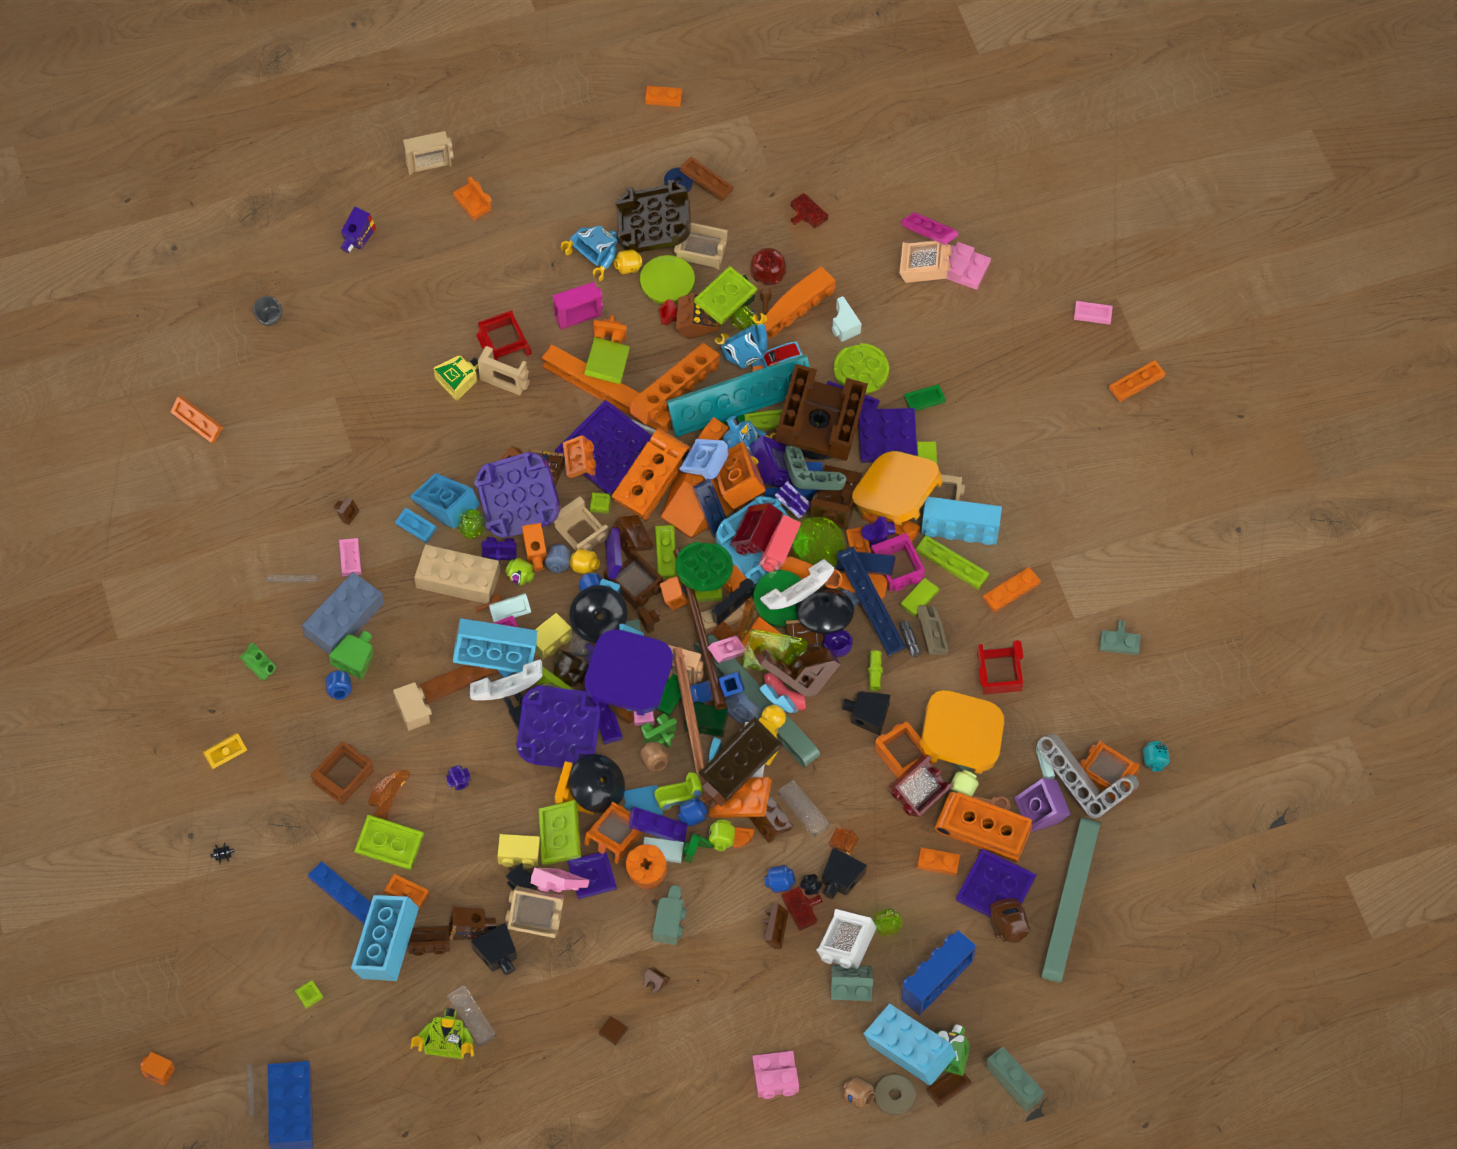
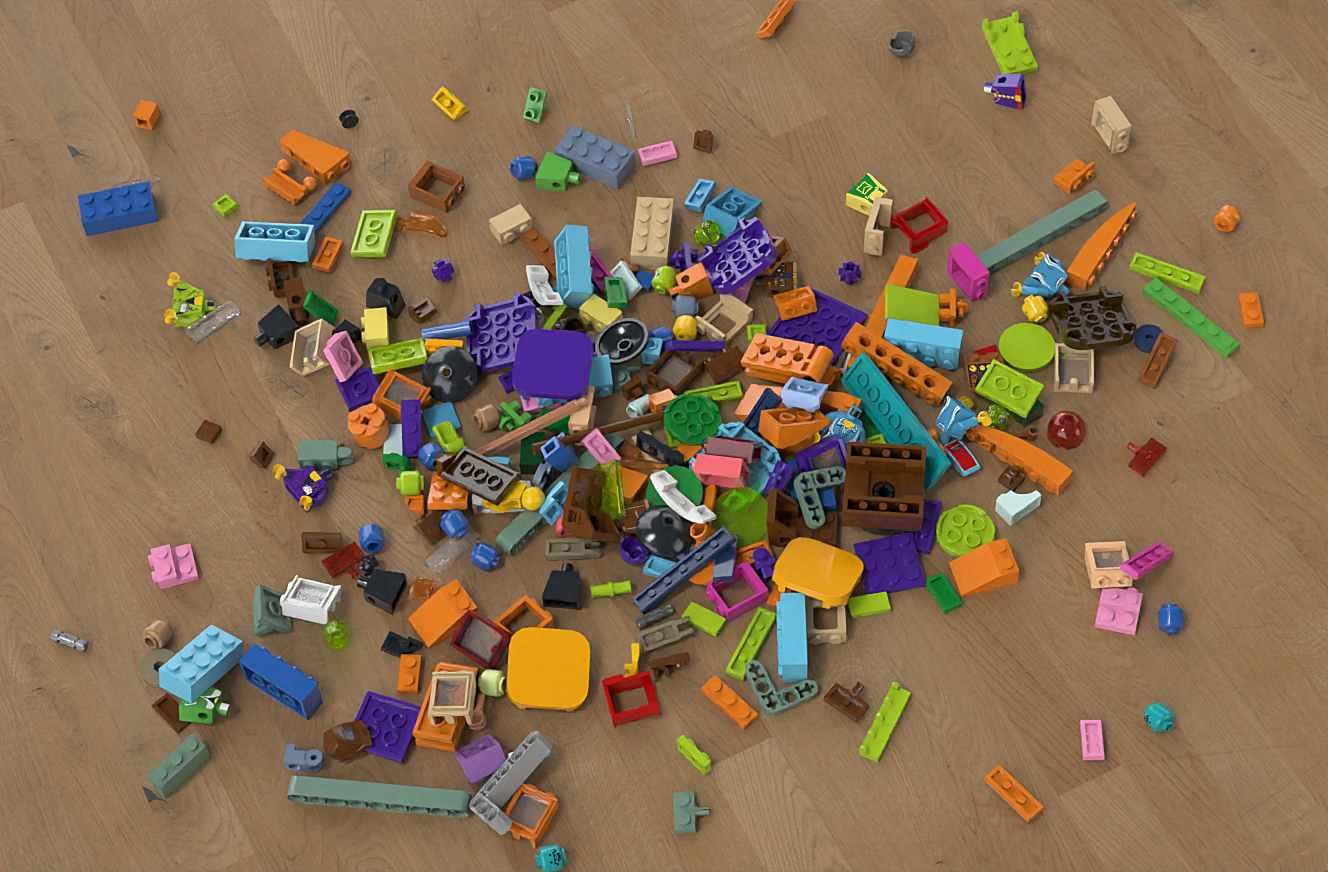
camera: 85 degrees right, 5 degrees down
(267, 892) = (315, 156): none -> orange slope
(292, 221) = (1009, 45): none -> lime hinge
(300, 927) = (287, 187): none -> orange gear
(485, 836) = (387, 295): none -> black torso
(485, 900) = (320, 307): none -> green tile
(504, 803) = (422, 310): none -> reddish brown plate
(511, 590) = (645, 279): none -> blue tile
(530, 615) = (615, 292): none -> green tile
(536, 235) = (1043, 231): none -> sand green beam
(540, 780) = (448, 331): none -> piece
(548, 408) = (849, 272): none -> dark purple gear
(558, 88) = (1227, 218): none -> orange piece
(566, 196) = (1099, 248): none -> orange slope
(606, 151) = (1167, 273): none -> lime tile
(655, 354) = (926, 343): none -> medium azure brick
(661, 144) = (1191, 317): none -> bright green plate
(670, 618) = (638, 407): none -> light aqua cone
(707, 934) = (305, 485): none -> torso
(784, 794) = (454, 524): none -> blue head
(811, 321) = (1011, 478): none -> reddish brown tile
(820, 776) = (484, 556): none -> blue head
(823, 704) = (571, 549): none -> dark tan hinge
(858, 624) = (657, 566): none -> medium azure tile
(879, 821) = (441, 614): none -> orange slope
(905, 867) = (397, 645): none -> black slope
(907, 358) = (985, 568): none -> orange slope
(959, 659) = (632, 669): none -> yellow slope
(963, 632) = (677, 659): none -> reddish brown plate
(984, 227) = (1171, 618): none -> blue head
(990, 810) = (452, 696): none -> tan window
(1010, 551) = (777, 697): none -> sand green beam
(1023, 959) = (302, 760): none -> sand blue leg
(1027, 492) = (847, 701): none -> reddish brown plate
(1051, 468) = (885, 722): none -> lime hinge
(1064, 625) = (690, 751): none -> lime plate
(1080, 257) = (1159, 717): none -> teal head

